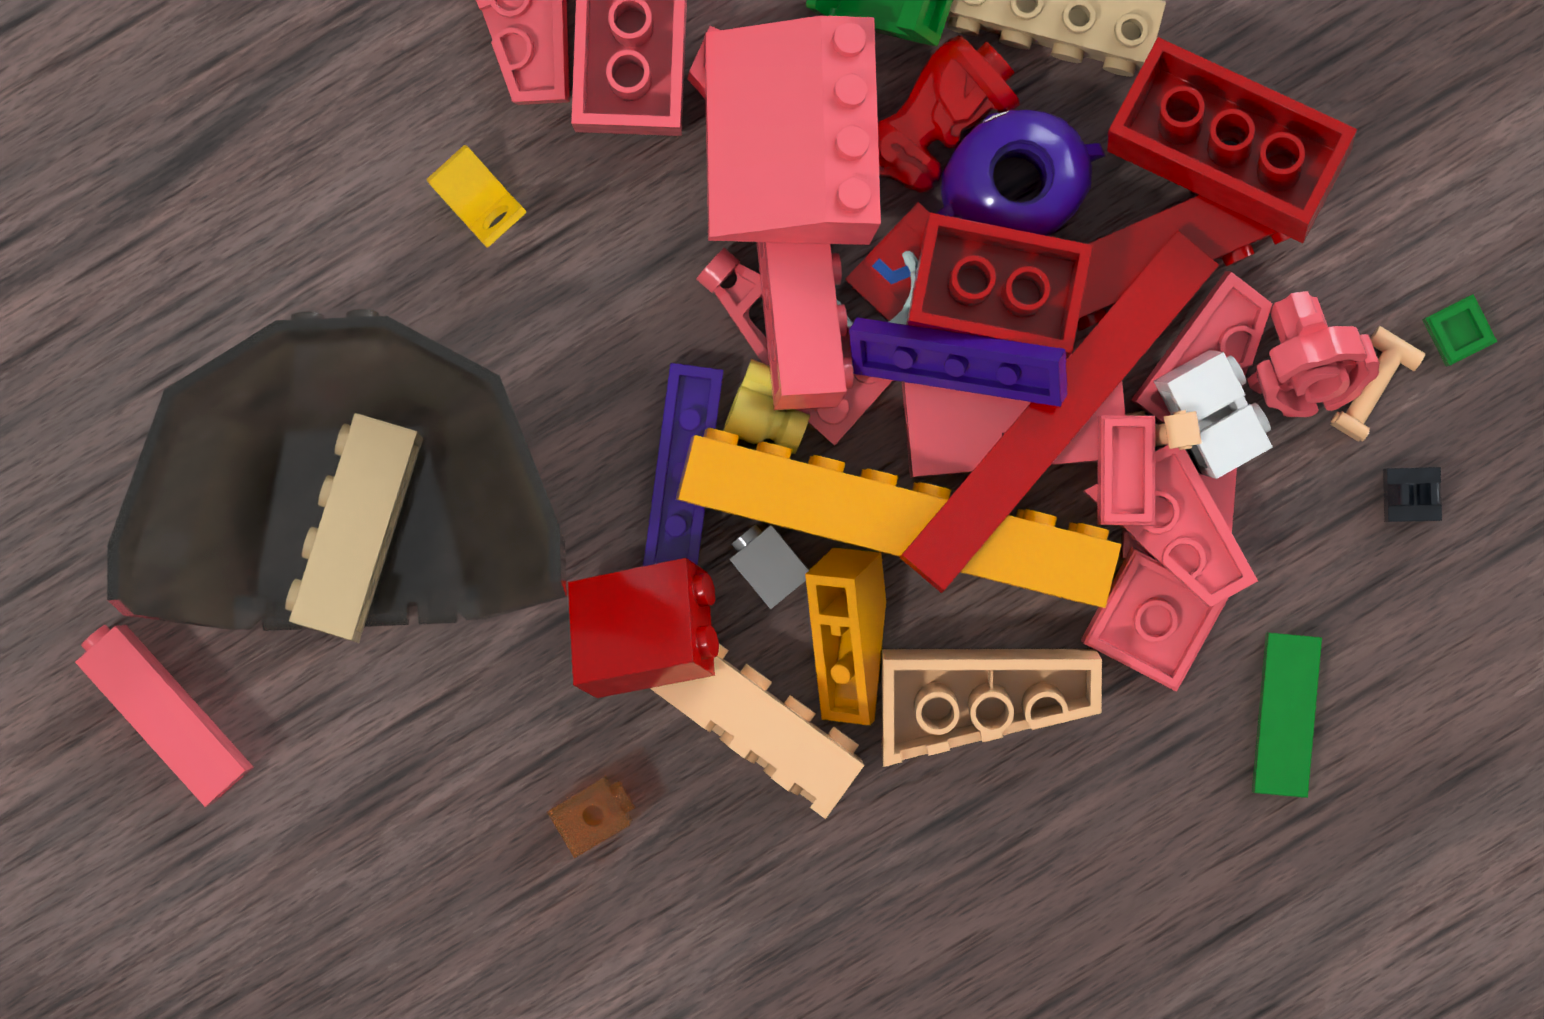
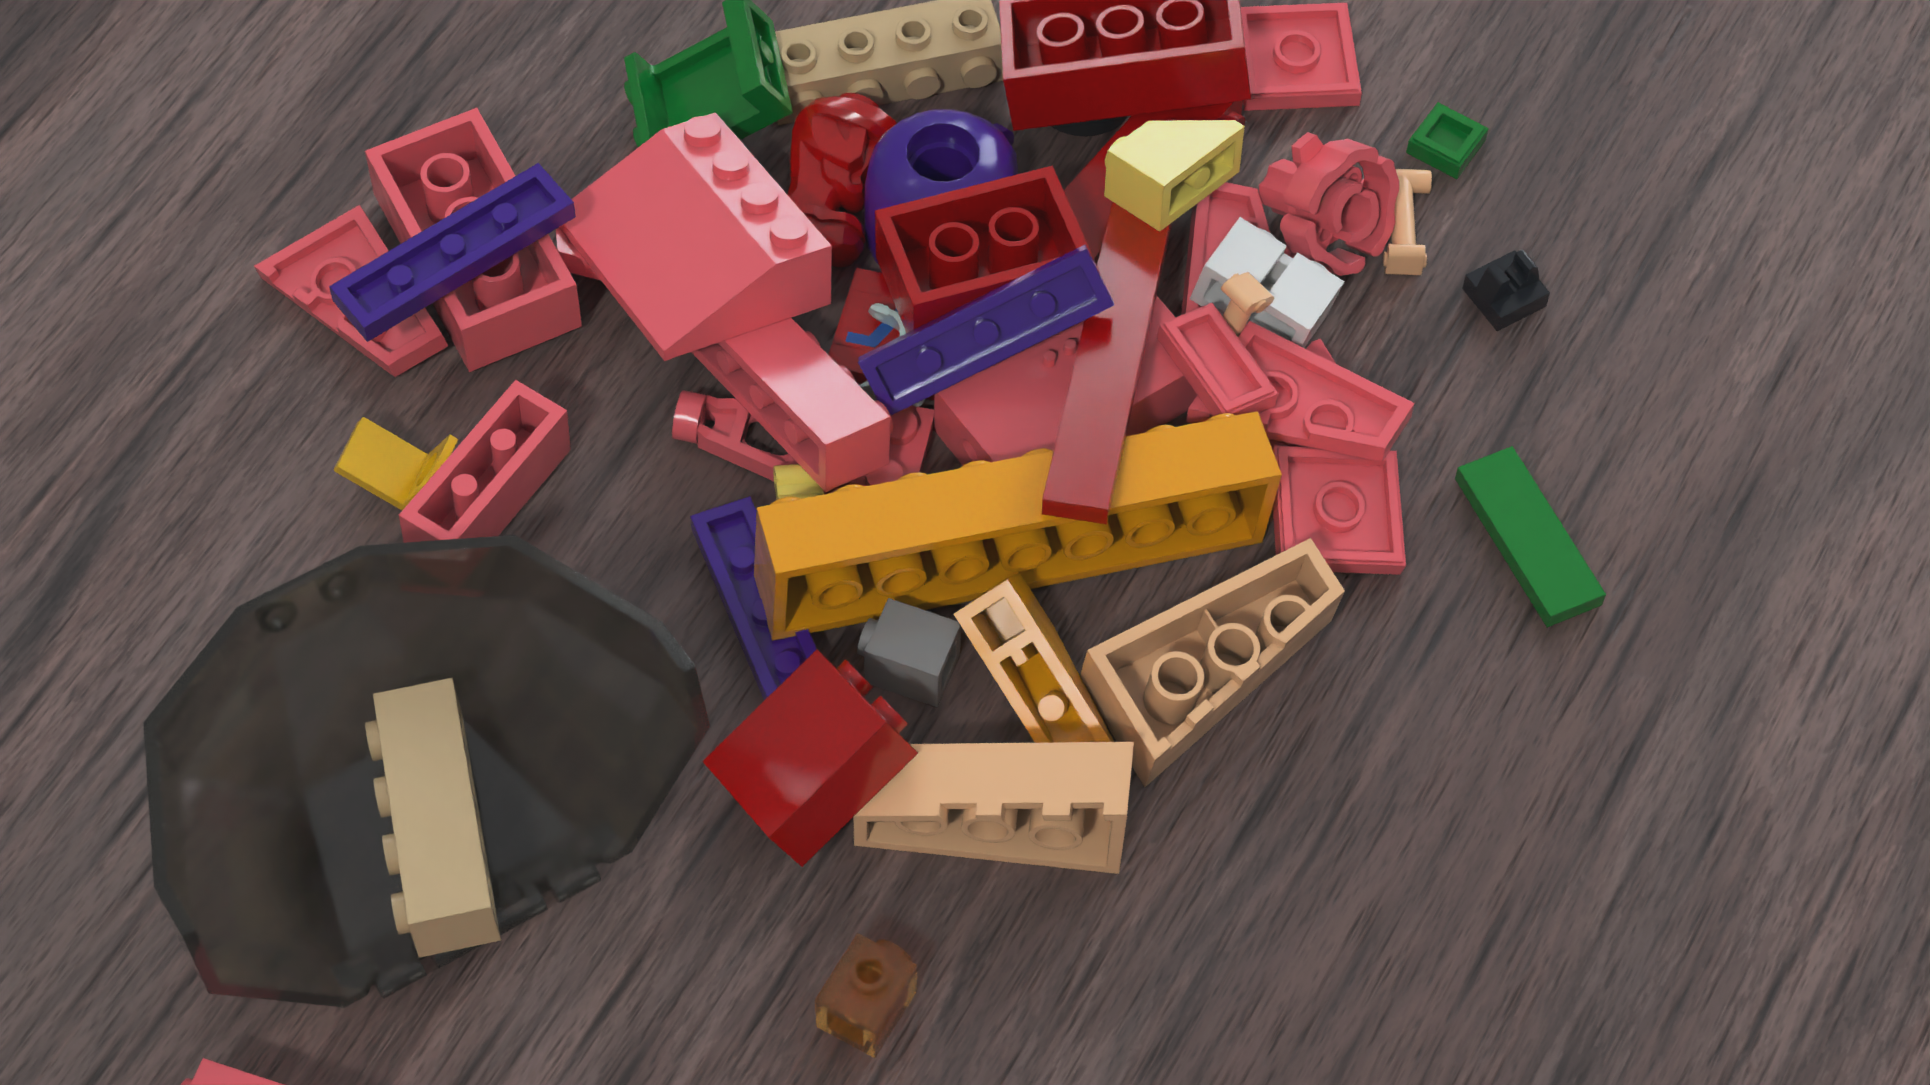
camera: 30 degrees left, 30 degrees down
(531, 256) = (491, 470): none -> coral brick
(595, 56) = (452, 252): none -> dark purple plate
(1189, 287) = (1171, 166): none -> light yellow slope
(1392, 182) = (1300, 57): none -> coral tile

